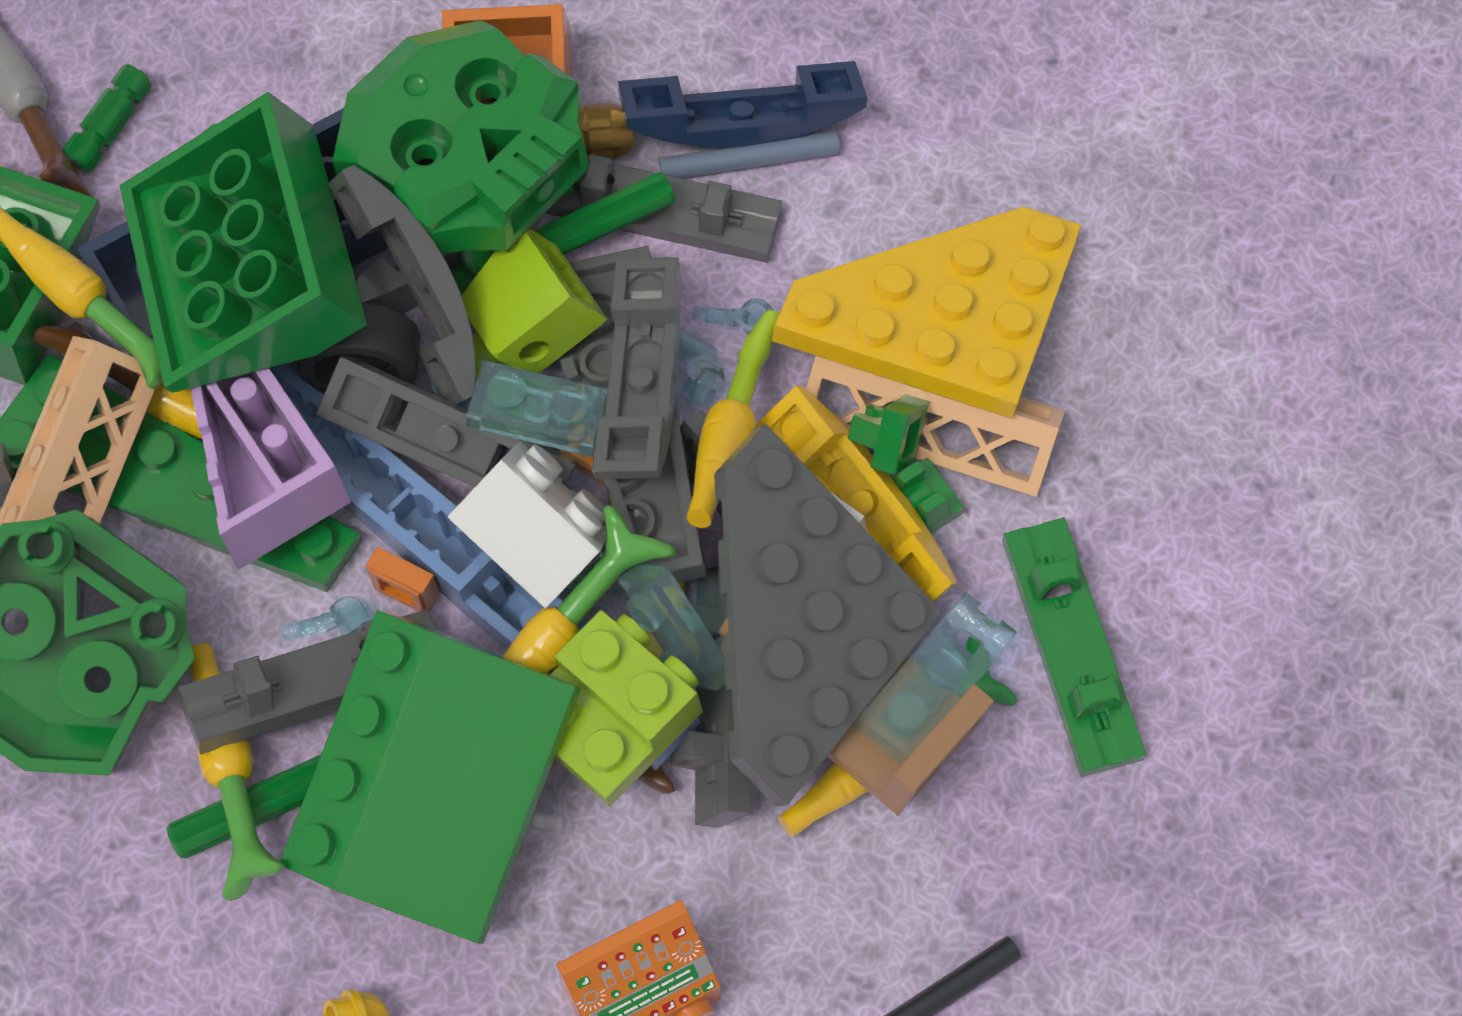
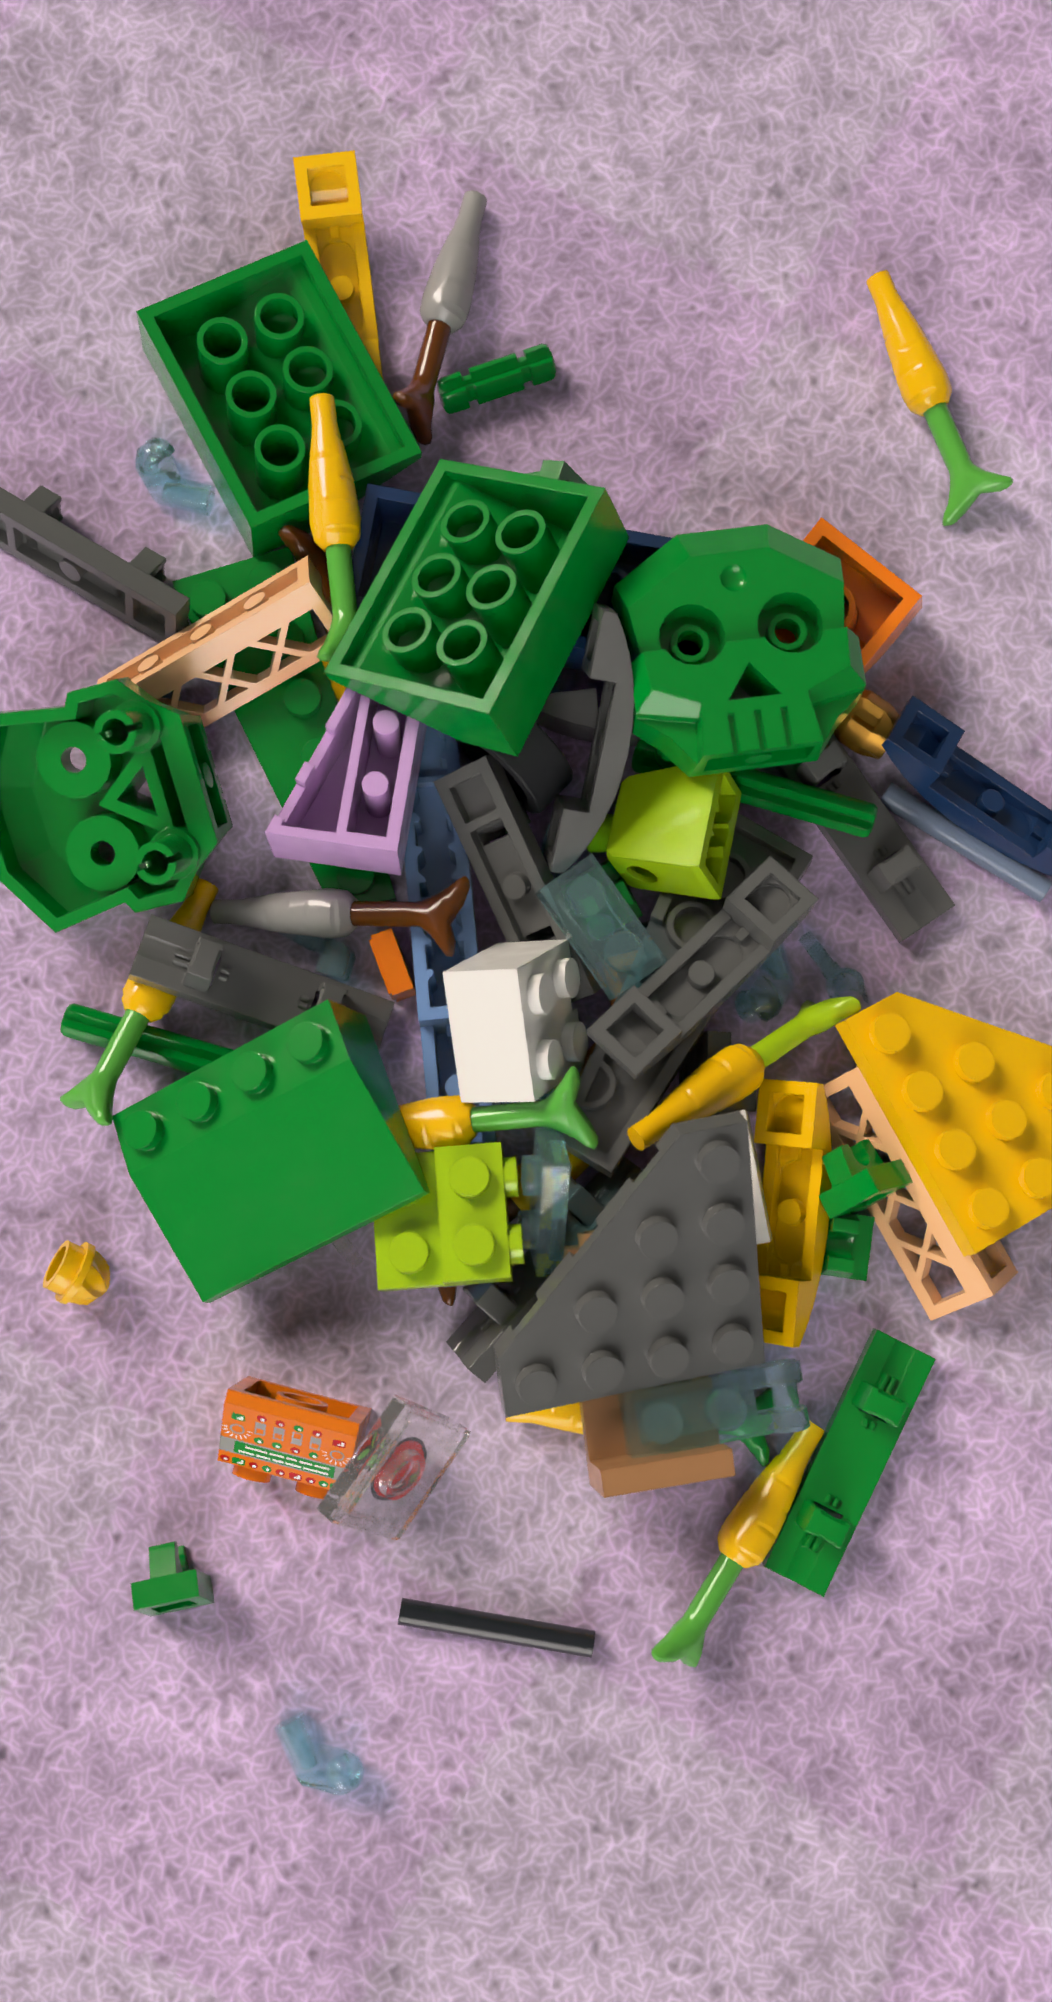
camera: 45 degrees right, 15 degrees up
(326, 573) = (338, 913): none -> piece
(741, 934) = (394, 1469): none -> clear tile
(1051, 768) = (743, 1543): none -> yellow piece

